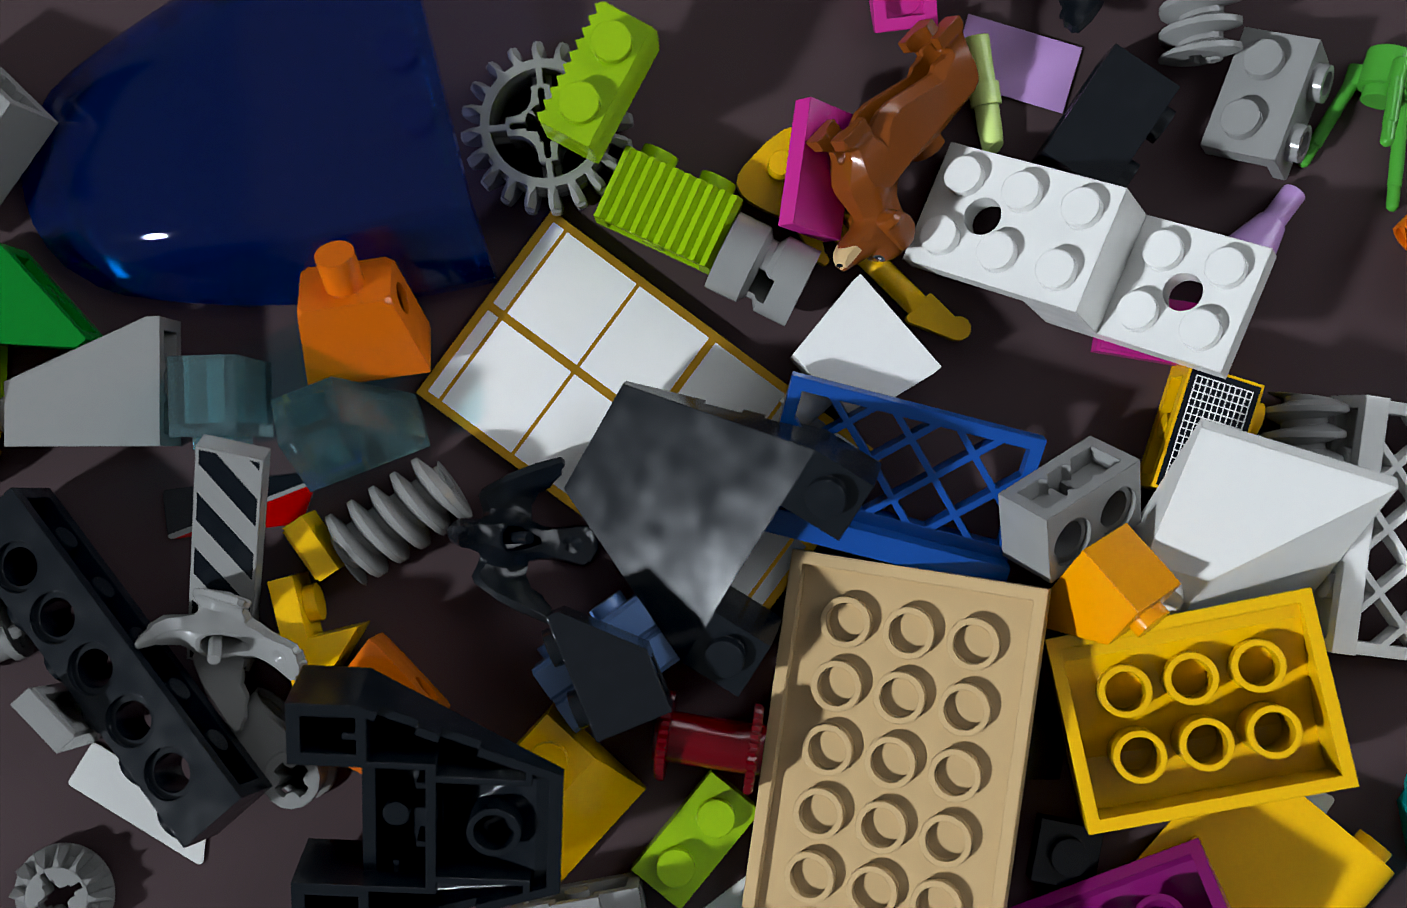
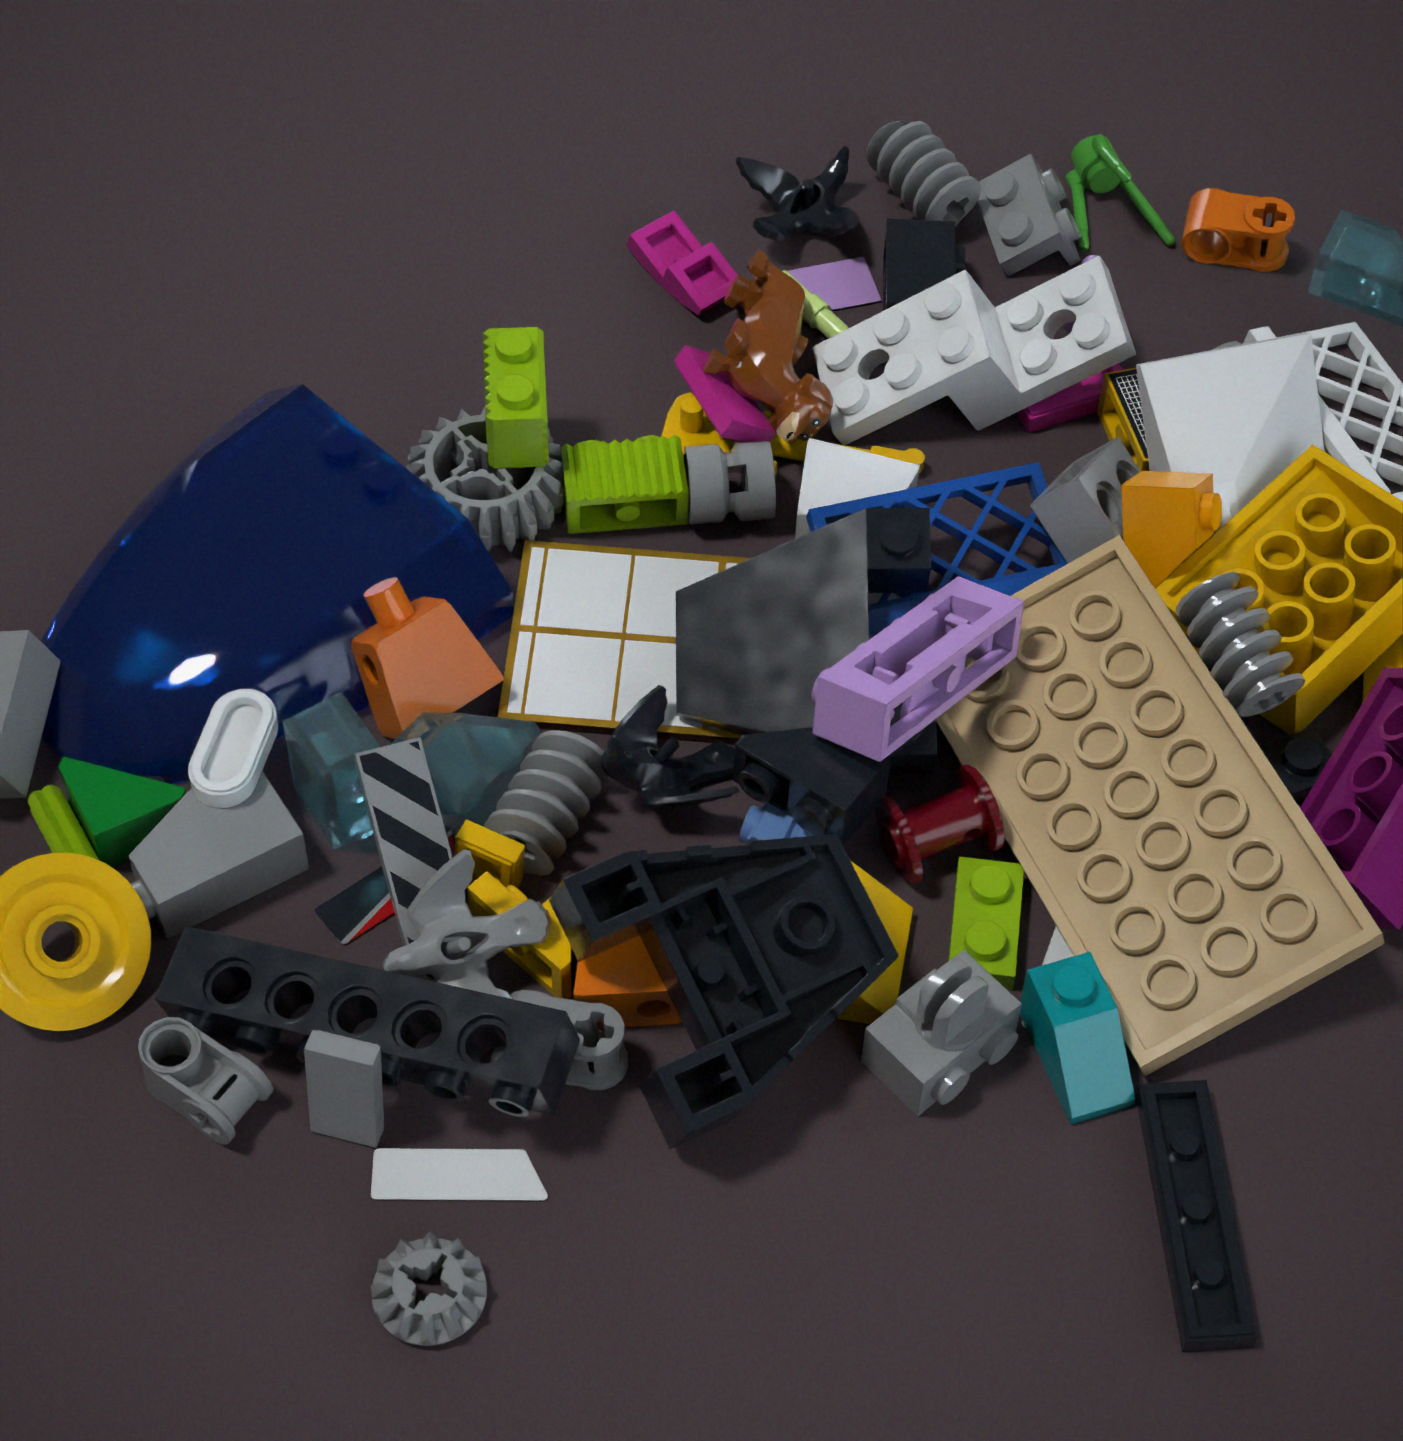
camera: 30 degrees left, 35 degrees down
(140, 327) = (233, 748): none -> white tile
(852, 588) = (916, 664): none -> lavender brick
(1069, 784) = (1233, 646): none -> light grey piece

